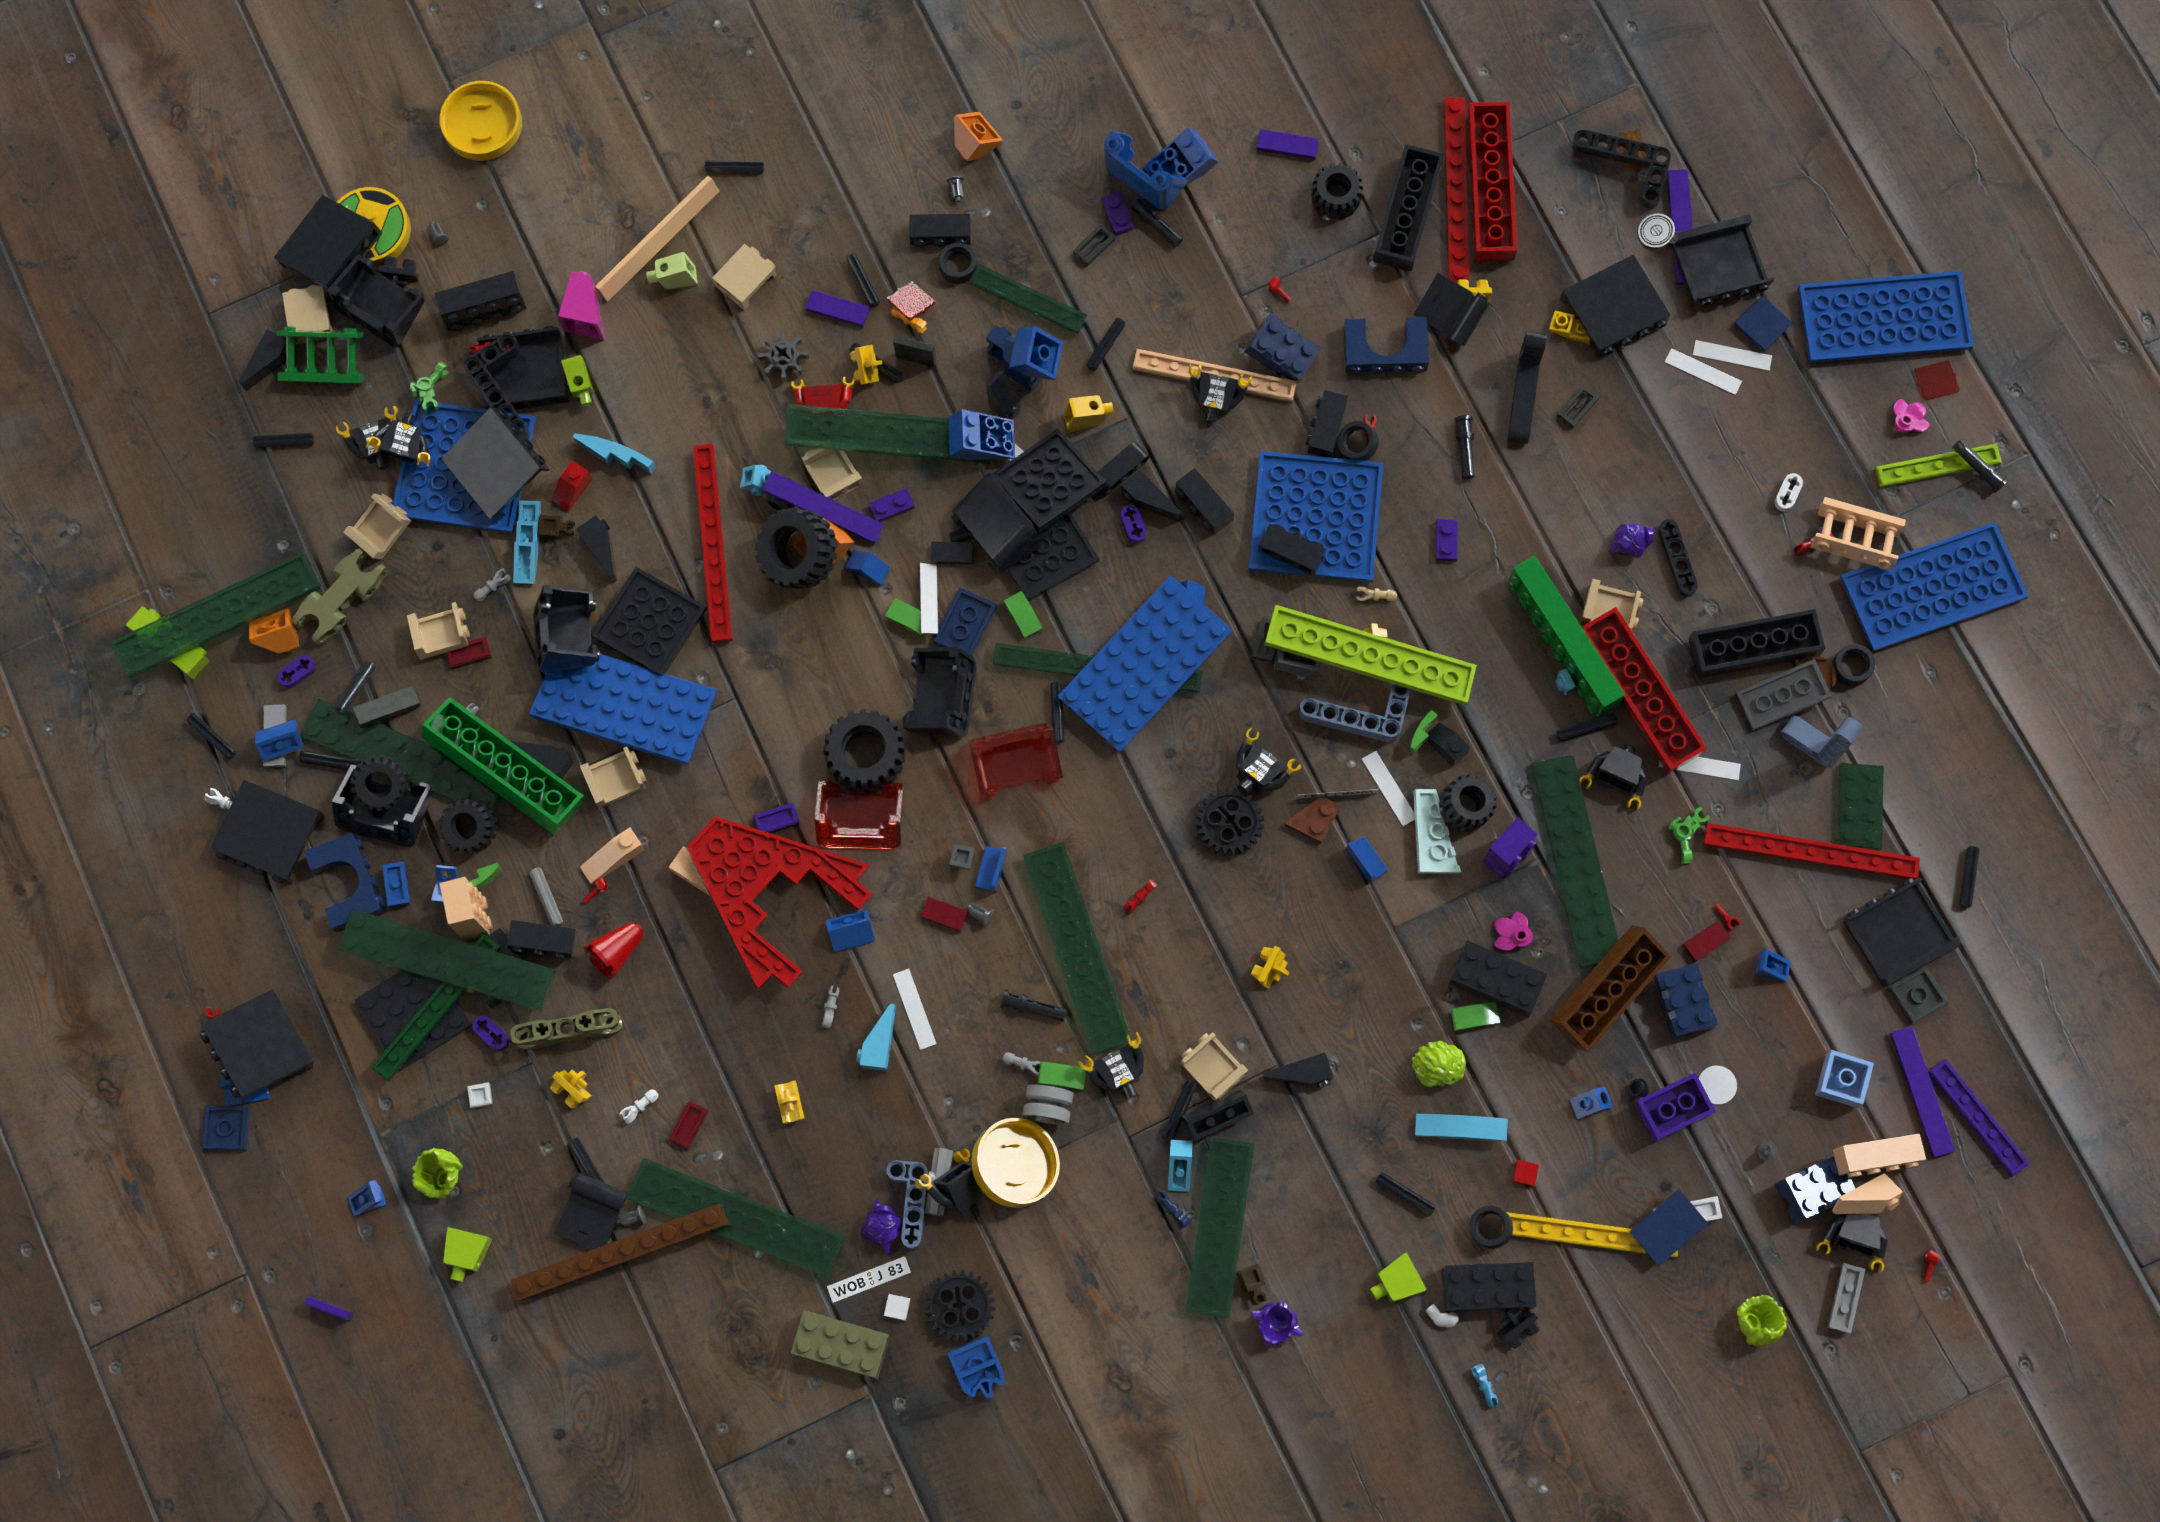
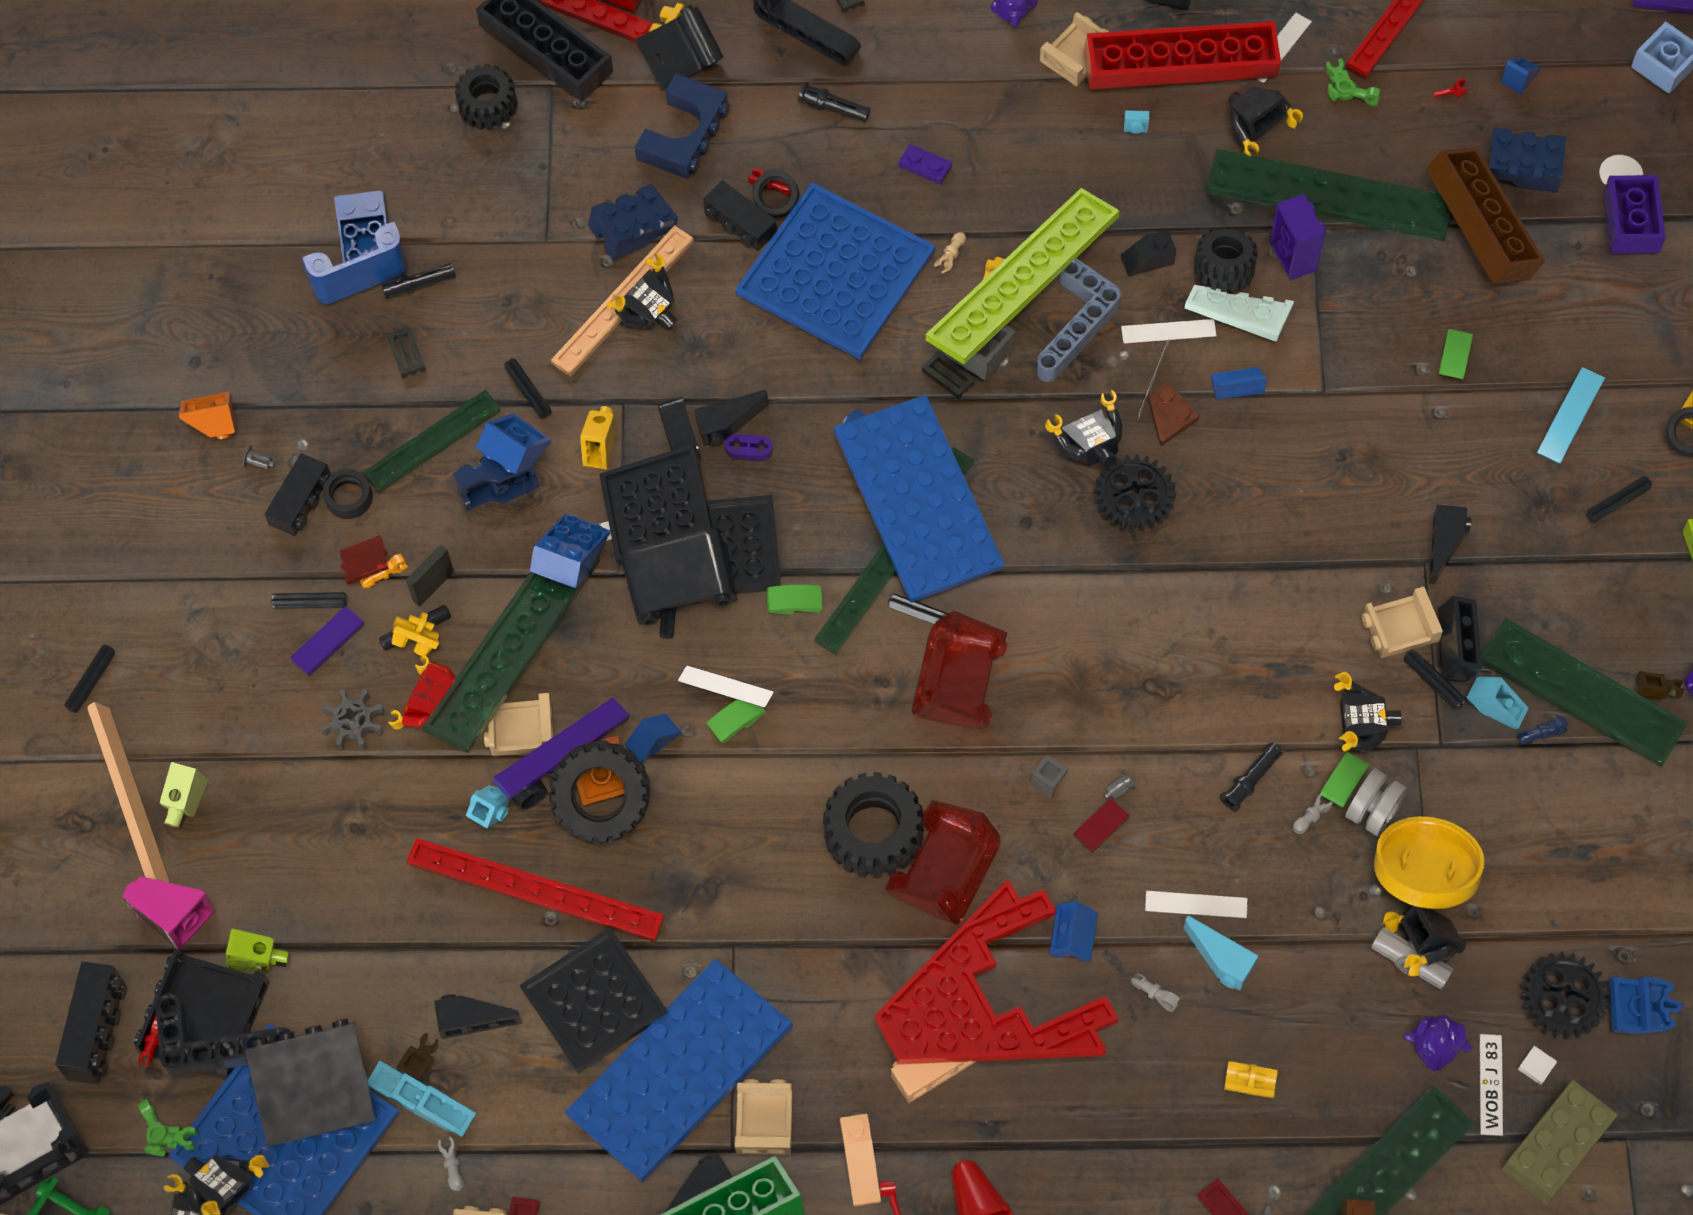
camera: 65 degrees left, 10 degrees down
(563, 629) = (556, 1100): black windscreen -> none
(571, 486) = (379, 1019): red slope -> none
(608, 450) = (357, 959): medium azure slope -> none
(743, 275) = (231, 721): tan panel -> none
(777, 818) = (902, 958): dark purple tile -> none
(891, 505) = (593, 681): dark purple plate -> none
(911, 1205) = (1424, 1000): sand blue beam -> none
(942, 691) = (842, 719): black windscreen -> none
(952, 553) = (683, 642): black tile -> none
(965, 622) = (773, 663): dark blue tile -> none
(991, 869) = (1074, 752): blue panel -> none
(1002, 396) = (537, 508): black slope -> none
(1077, 948) = (1206, 703): clear green plate -> none
(1117, 213) = (383, 315): dark purple plate -> none
(1140, 896) = (1171, 608): red piece -> none
(1204, 501) = (762, 366): black brick -> none
(1273, 968) = (1321, 530): yellow hips -> none
(1274, 286) = (555, 202): red hand -> none
(1287, 144) = (403, 123): dark purple tile -> none
(1292, 549) = (865, 302): black brick -> none
(1420, 735) = (1127, 275): bright green slope -> none
(1439, 1064) = (1495, 407): lime hair -> none
(1498, 978) = (1426, 314): black brick -> none
(1510, 930) = (1377, 284): dark pink plate -> none
(1525, 1173) = (1643, 379): red tile -> none
(1565, 637) = (1090, 96): green brick -> none
(1587, 727) = (1192, 125): black axle -> none
(1590, 1102) = (1594, 290): blue bracket -> none
(1638, 1088) = (1598, 240): black plate -> none
(1706, 941) = (1468, 117): dark red tile -> none

